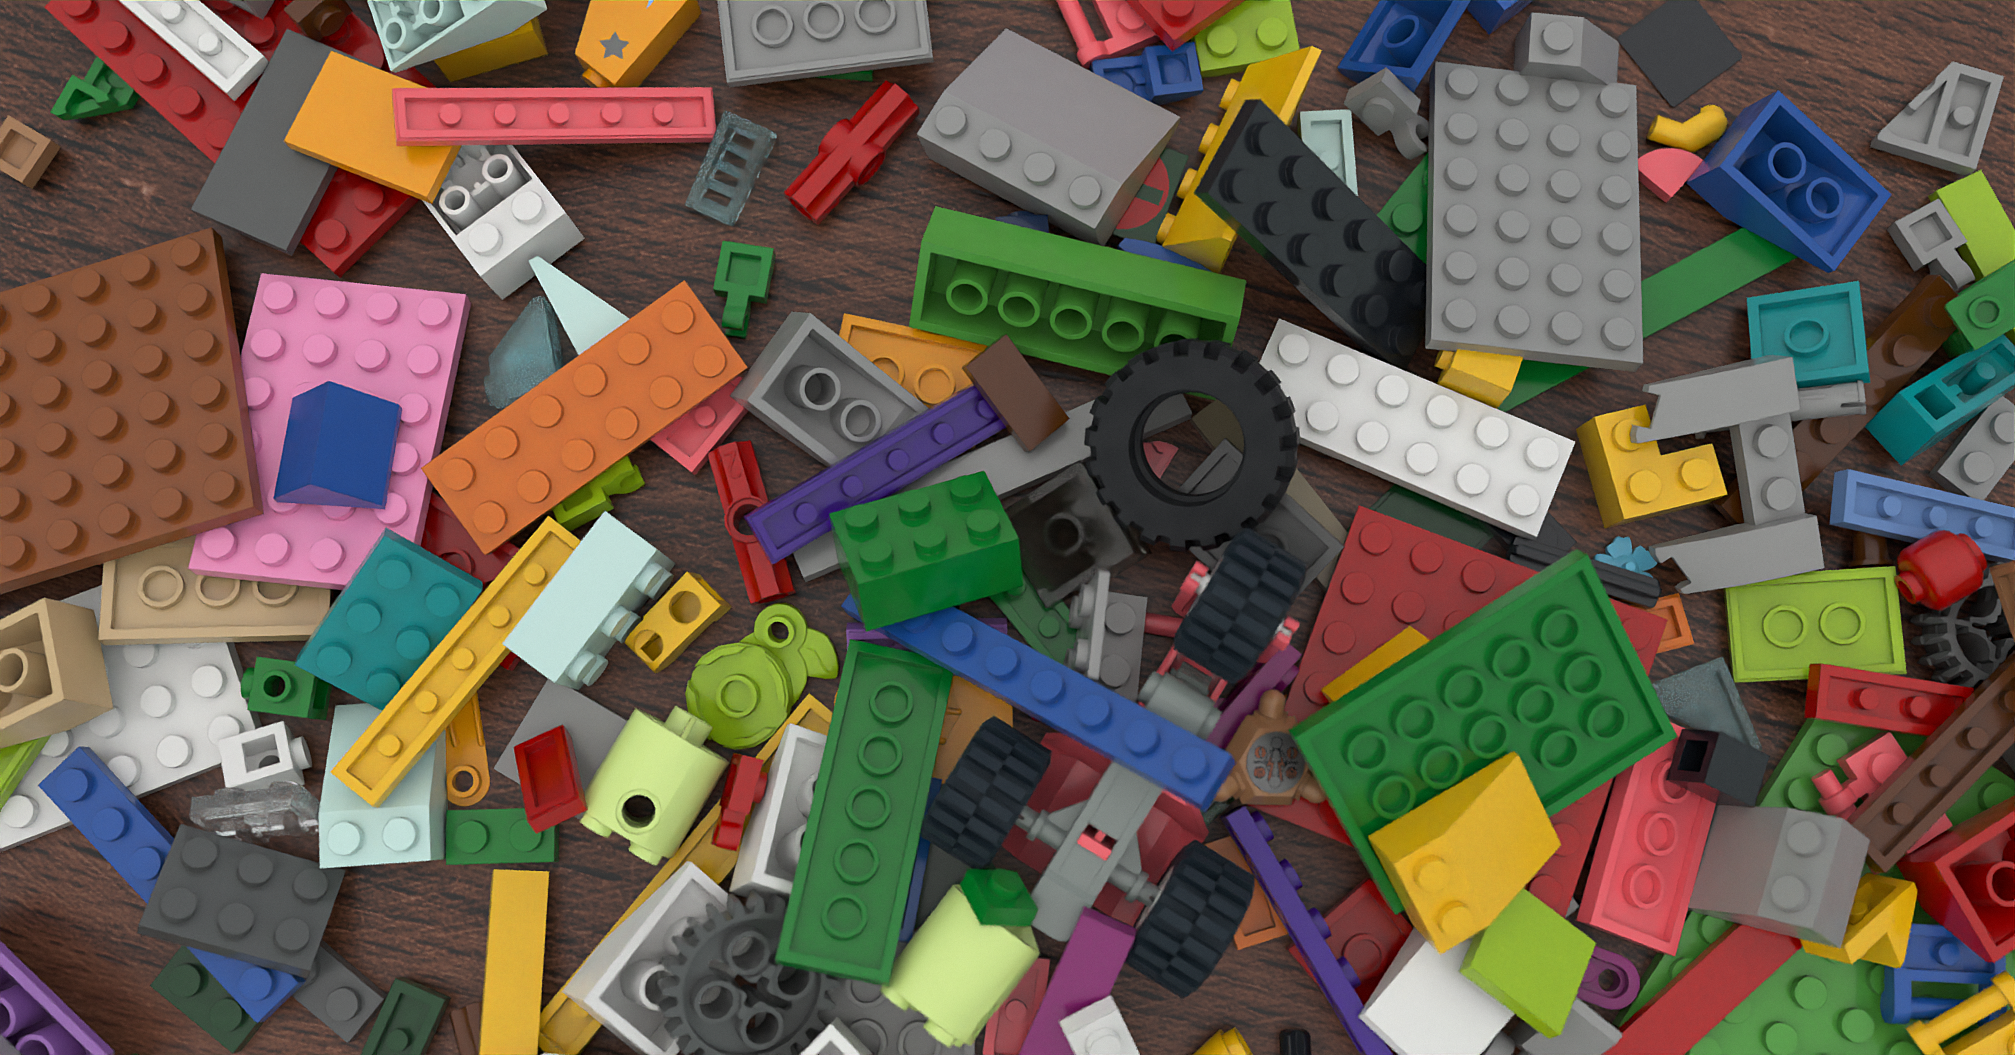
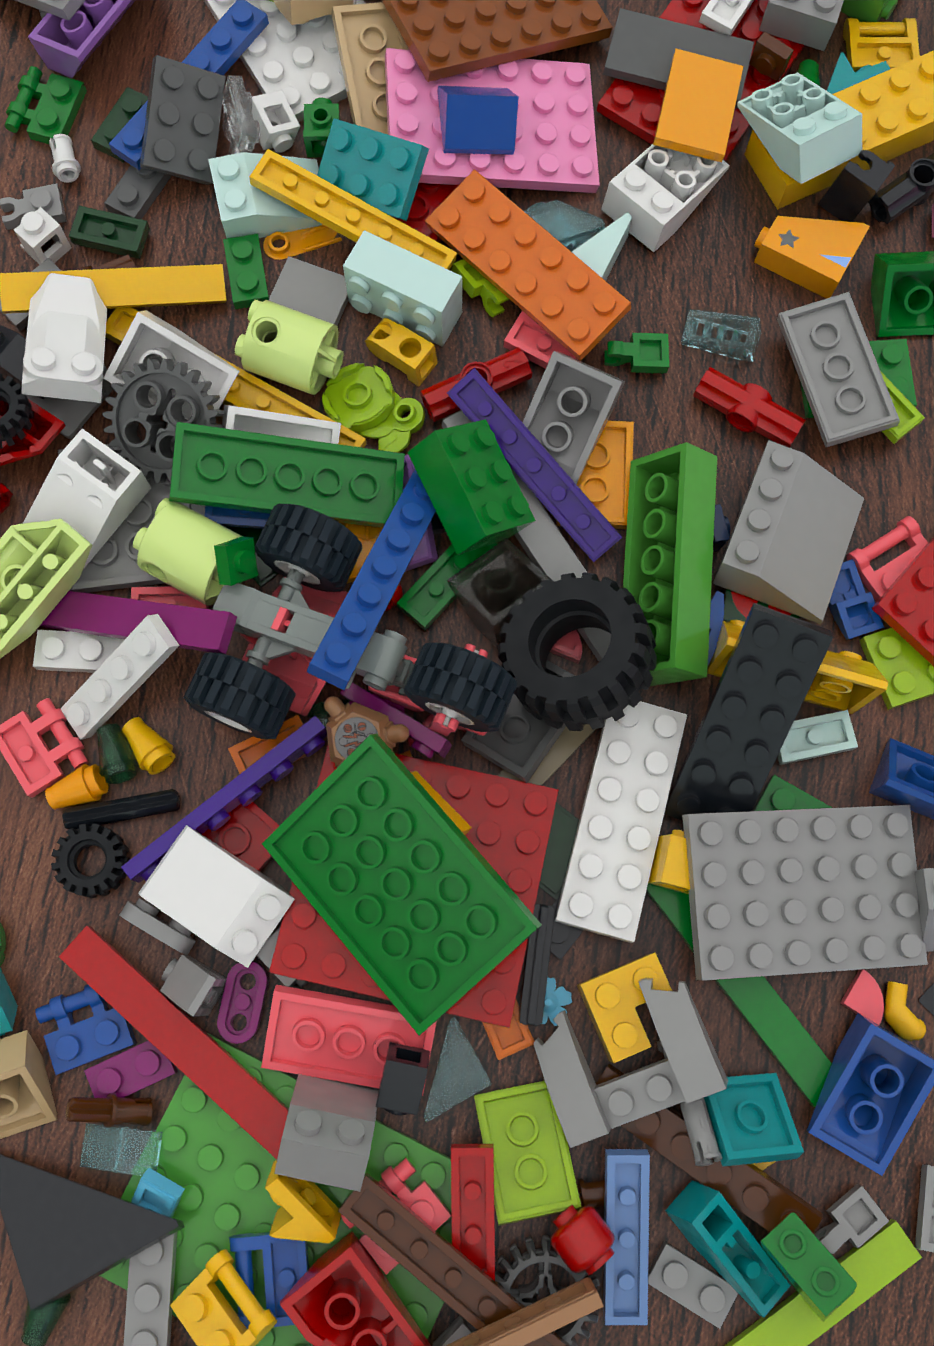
camera: 80 degrees right, 5 degrees down
(549, 779) = (283, 282): red tile -> none
(552, 115) = (730, 208): coral tile -> none
(742, 787) = (294, 401): red plate -> none
(1015, 393) = (595, 535): reddish brown tile -> none
(1107, 636) = (429, 616): light grey bracket -> none
(1389, 105) = (865, 774): light grey plate -> none
(1467, 852) = (310, 882): yellow slope -> none
(1530, 962) = (241, 941): lime tile -> none

